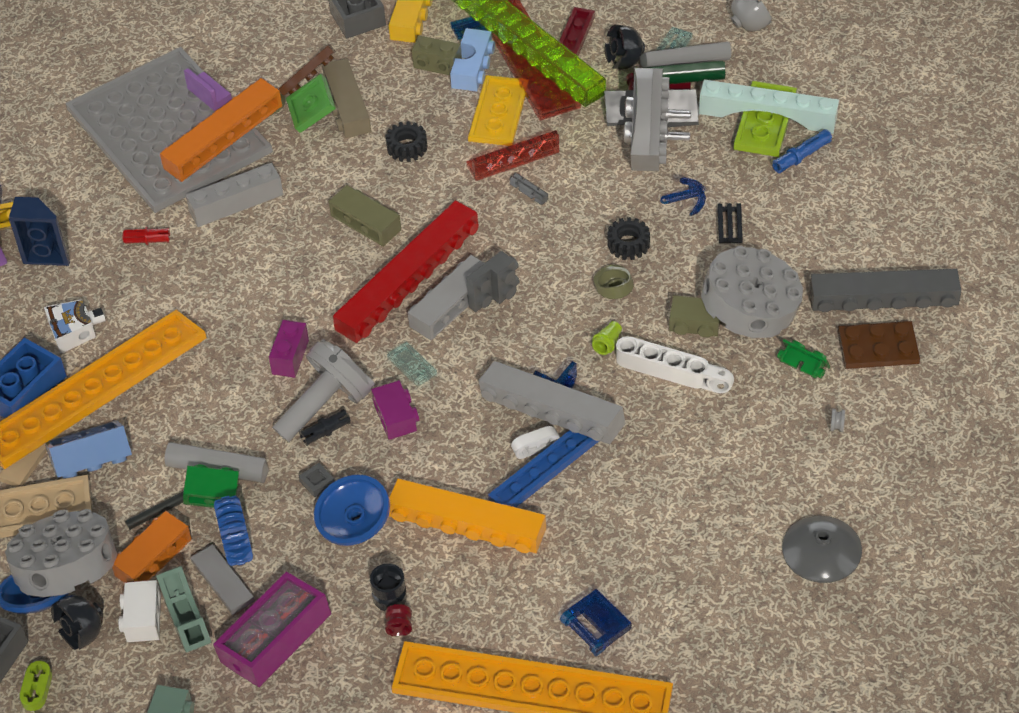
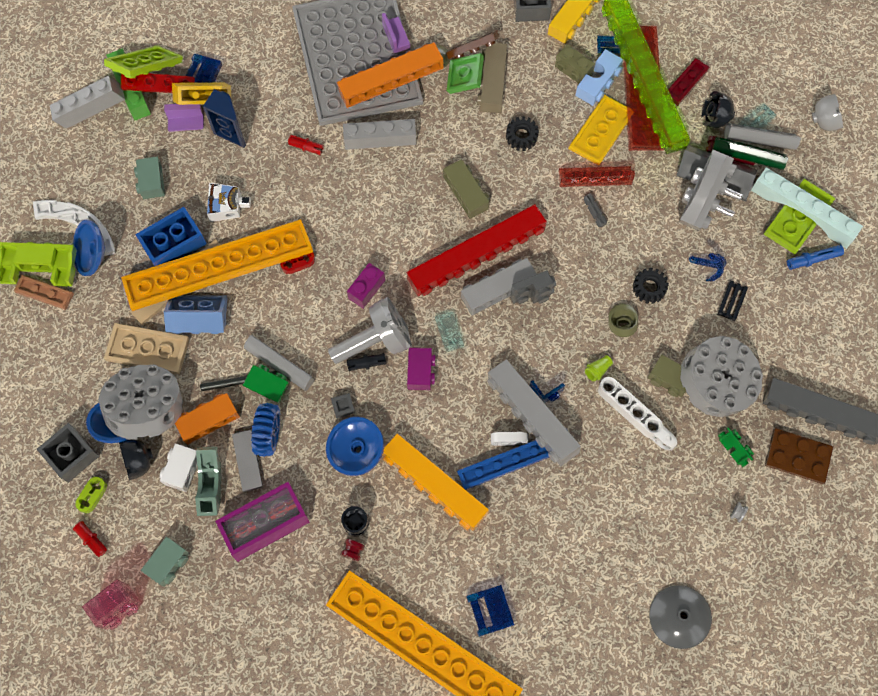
camera: 20 degrees right, 20 degrees up
(192, 358) = (298, 264): none -> red beam

